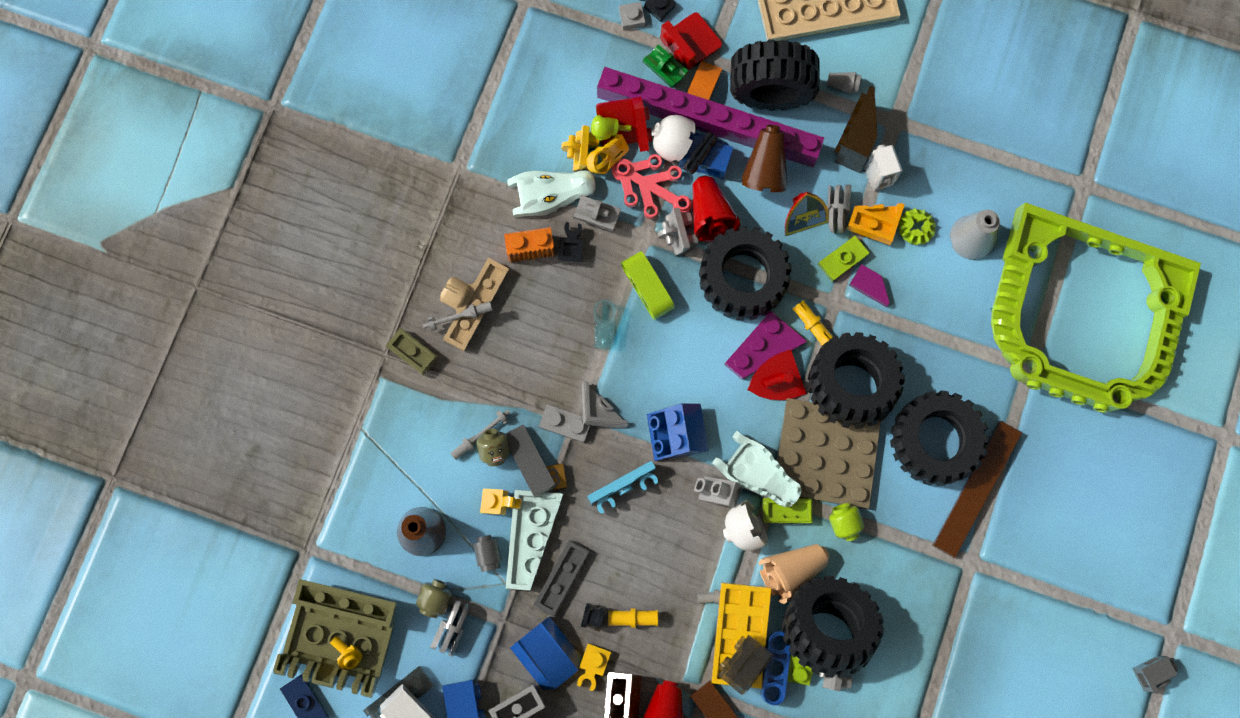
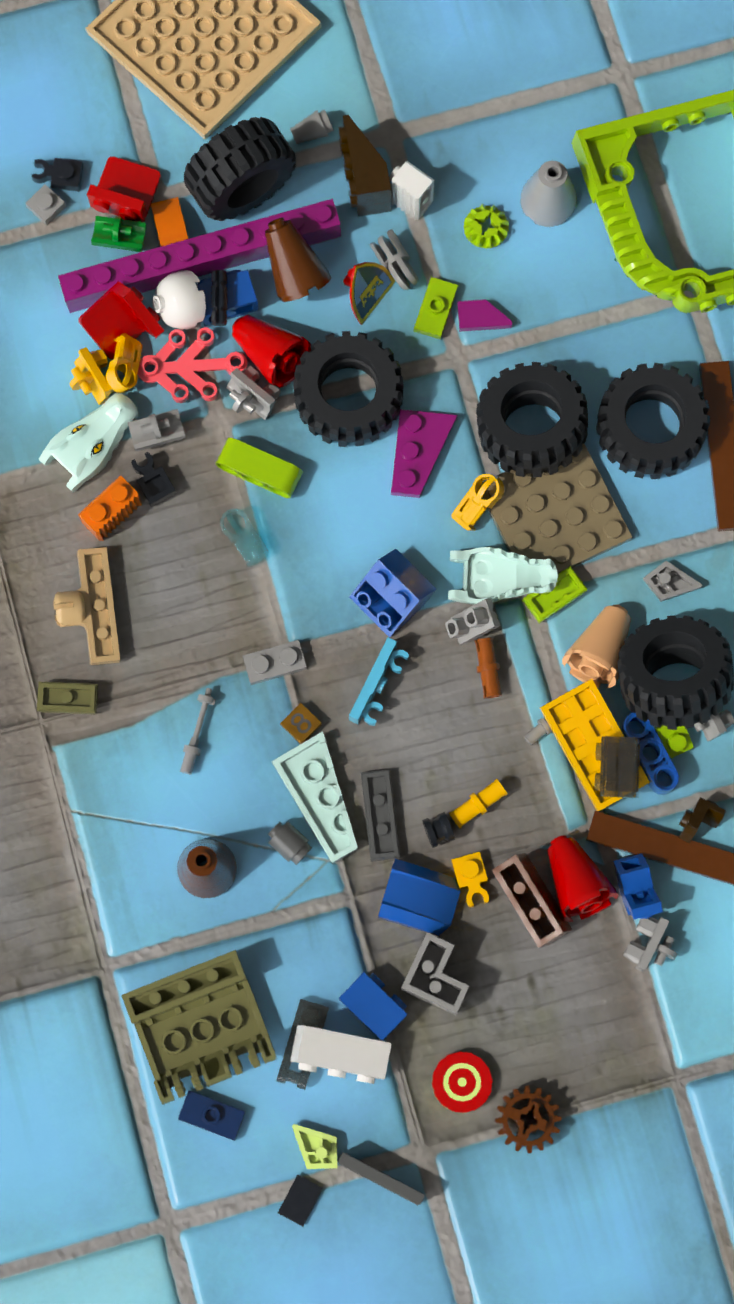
camera: 30 degrees left, 0 degrees up
(349, 656) = (226, 1036): yellow plate -> none
(434, 598) = (268, 923): olive head -> none
(451, 628) = (307, 940): light grey arm -> none
(473, 311) = (101, 614): light grey piece -> none
(493, 447) = (220, 734): olive head -> none
(496, 501) = (262, 784): yellow plate -> none
(529, 461) = (265, 723): dark grey tile -> none
(598, 411) = (299, 626): light grey tile -> none
(606, 127) = (104, 336): lime piece -> none
(706, 529) = (488, 668): none -> dark orange pin
(744, 527) = (525, 639): white cylinder -> none
(775, 410) = (474, 504): none -> yellow piece
(778, 378) = (453, 471): red shield -> none
(812, 322) = (450, 392): yellow pin -> none
(846, 521) = (619, 564): lime head -> none
(873, 557) = (670, 582): none -> light grey piece
(876, 221) = (442, 249): light orange wing -> none

